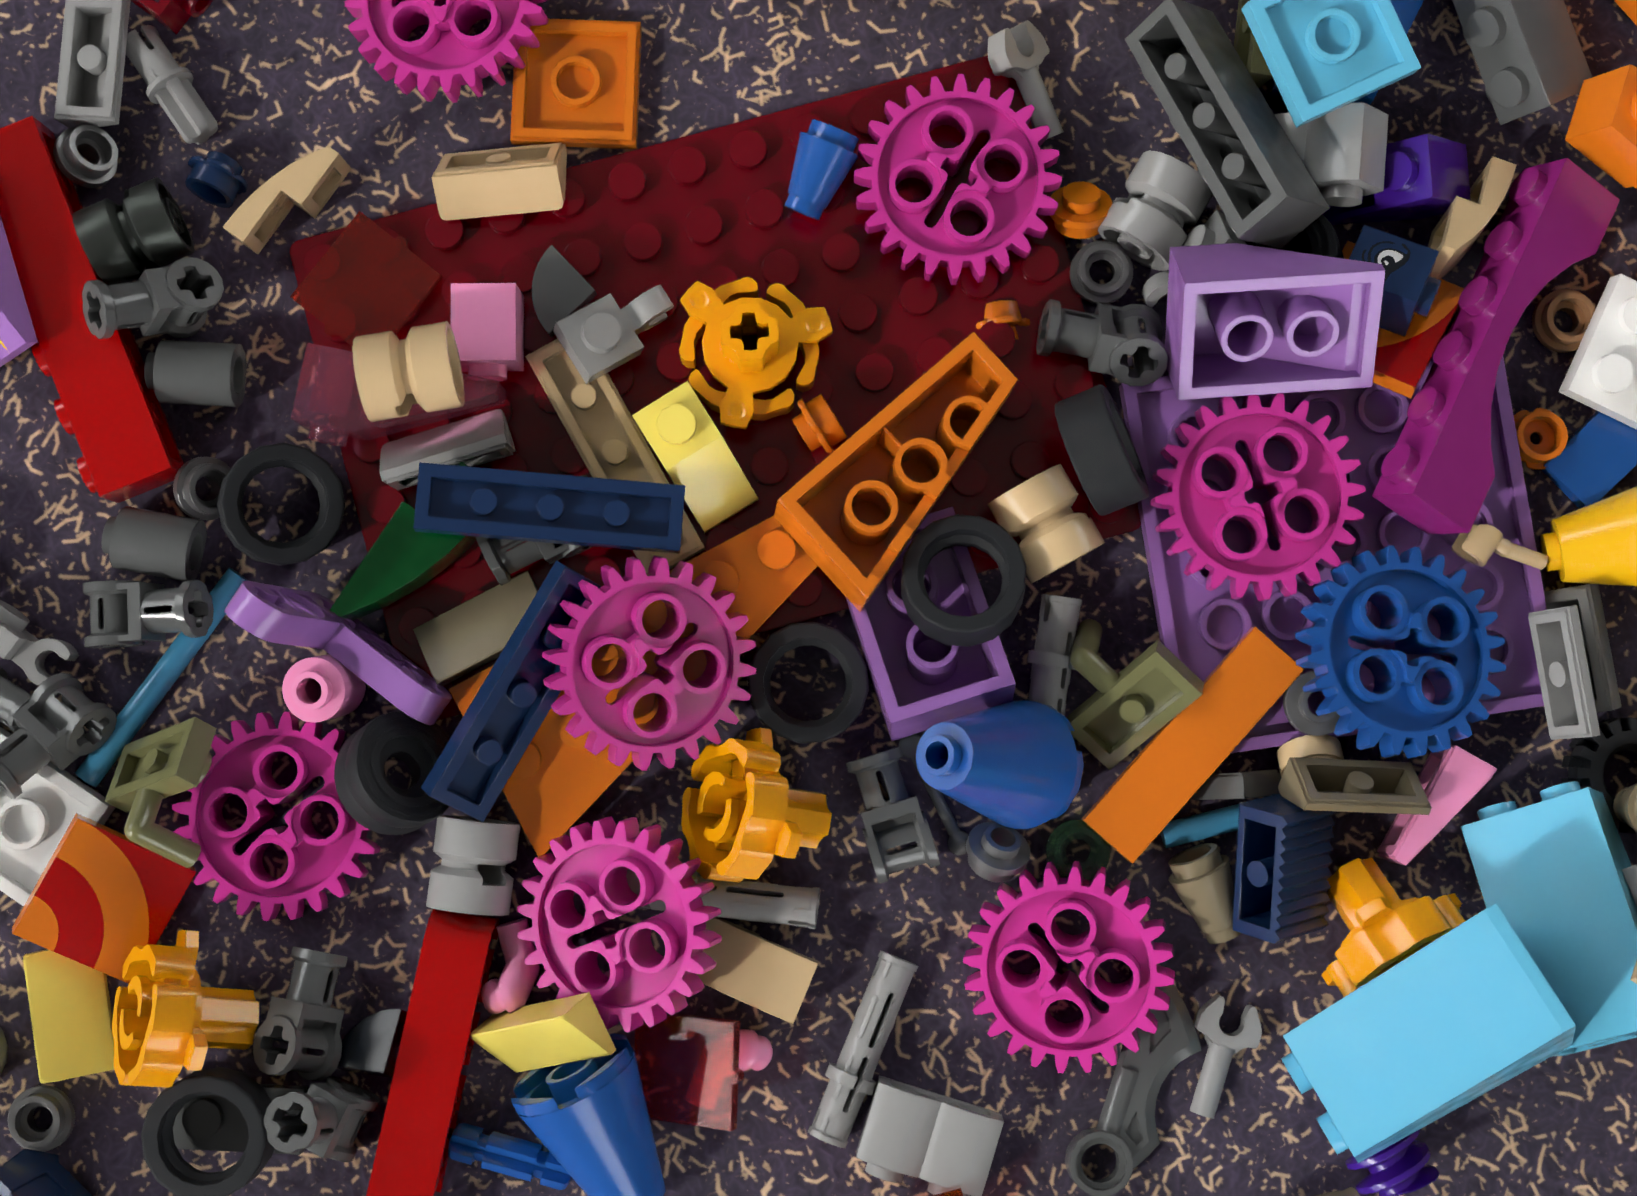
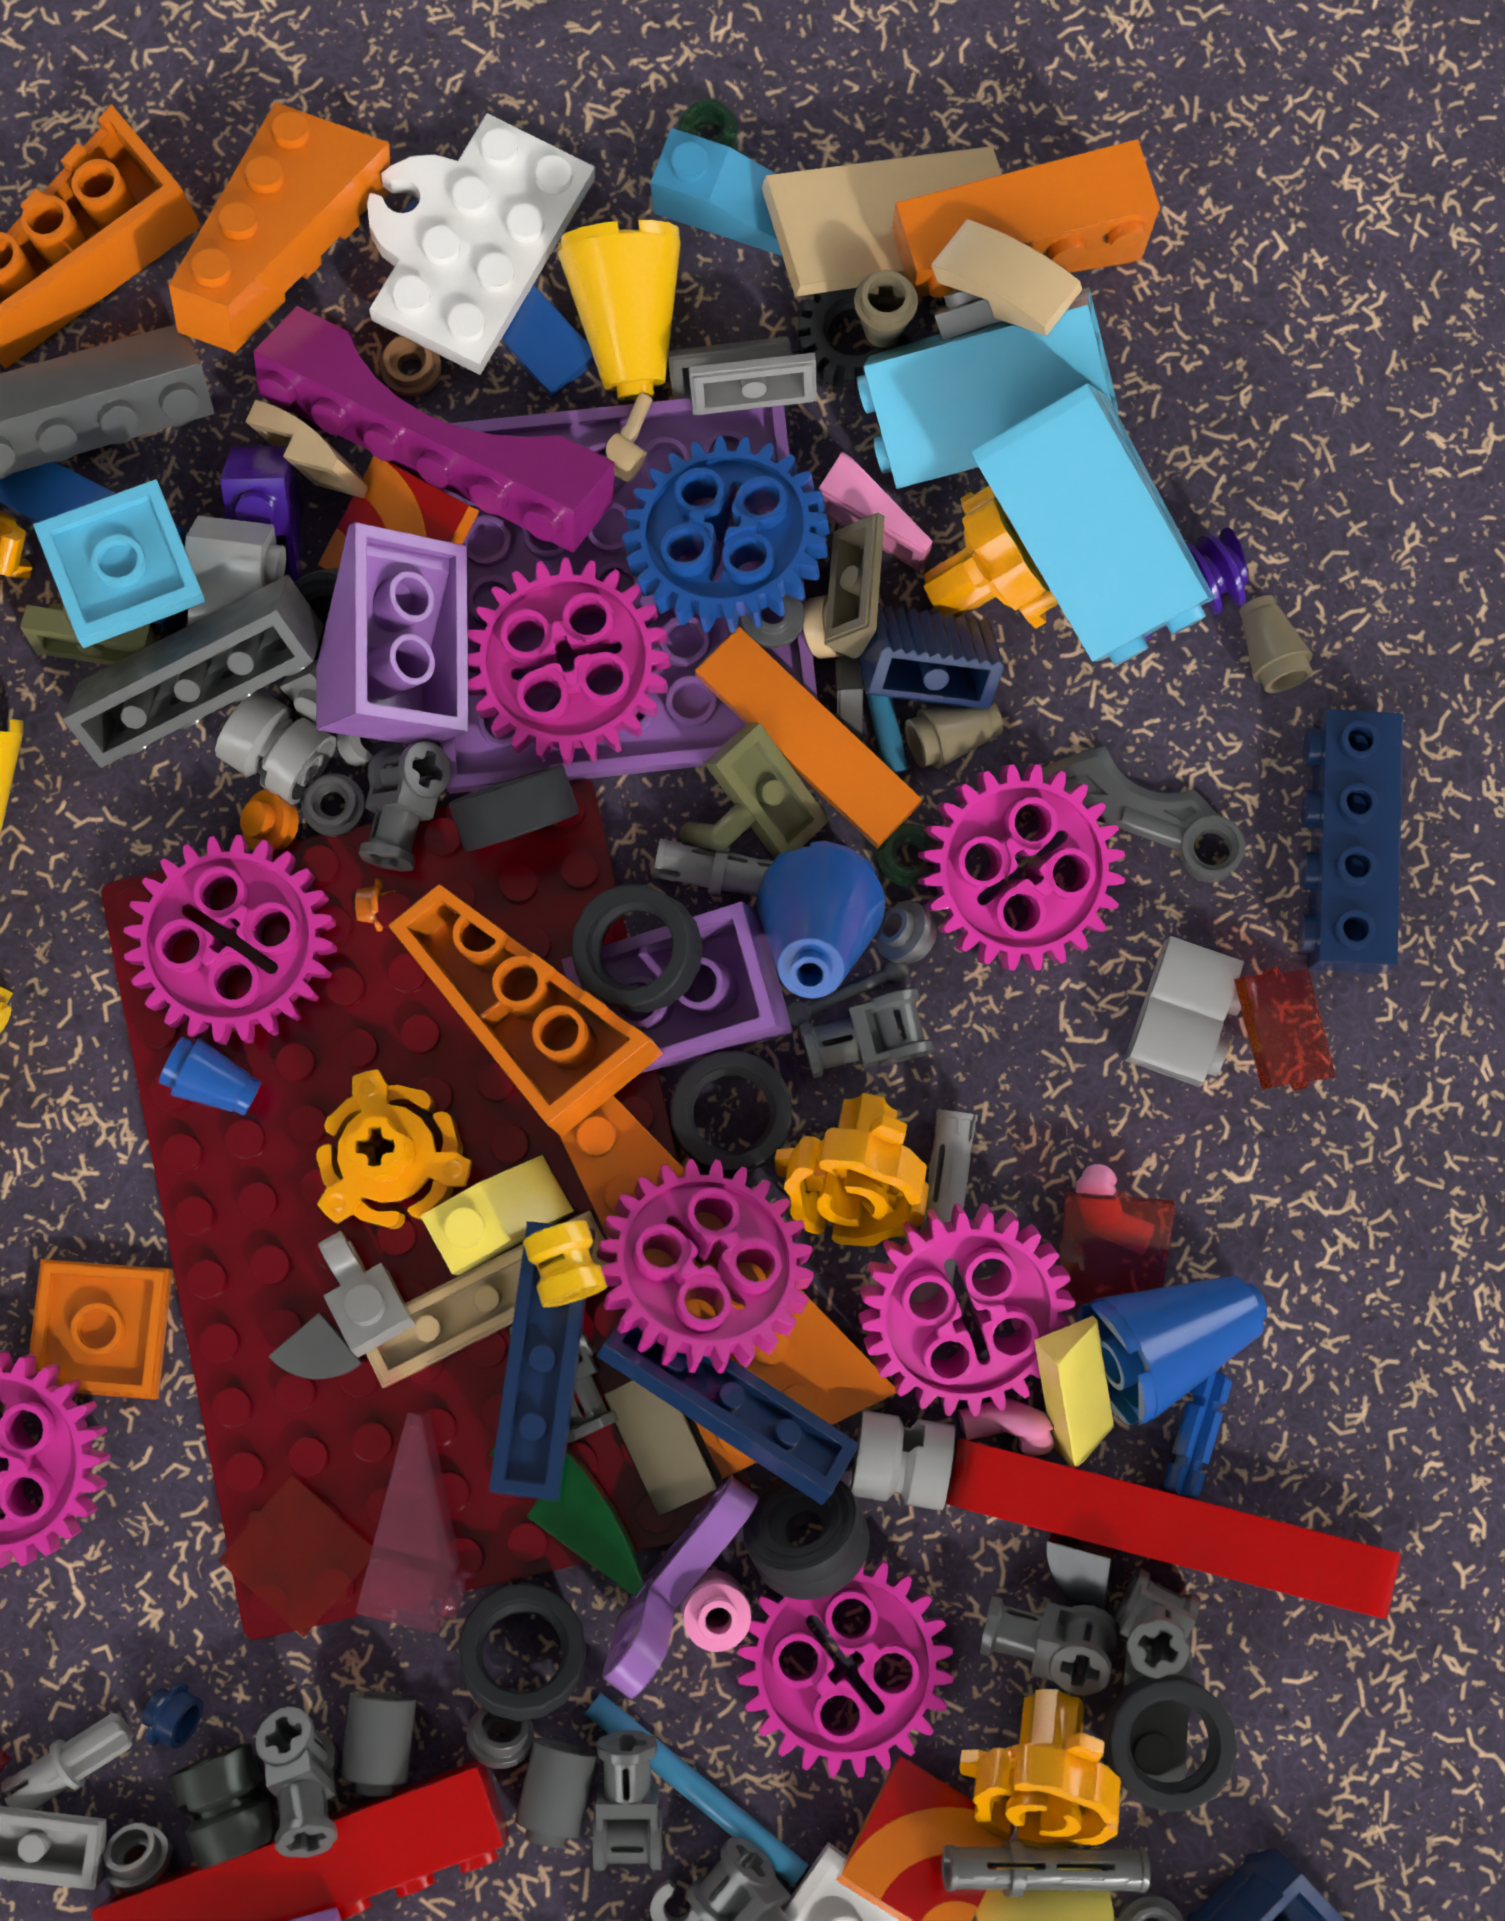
camera: 85 degrees left, 5 degrees down
(90, 941) = (969, 1869): none -> dark grey pin
(155, 770) = (792, 1789): olive plate -> none
(302, 183) = (185, 1621): tan slope -> none
(408, 371) = (394, 1500): tan wheel -> none
(469, 440) = (466, 1451): light grey slope -> none
(488, 328) = (352, 1425): bright pink brick -> none
(501, 181) = (197, 1409): tan slope -> none
(625, 528) = (564, 1263): none -> yellow wheel
(758, 970) = (1019, 1171): tan slope -> none
(818, 424) = (470, 1089): orange plate -> none
(862, 1050) = (1098, 1074): light grey pin -> none
(1018, 55) = (106, 875): light grey bar -> none
(1044, 521) = (584, 866): tan wheel -> none
(1220, 1051) = (1105, 727): light grey bar -> none
(1407, 276) = (367, 504): dark blue brick -> none
(1552, 435) = (521, 383): orange plate -> none

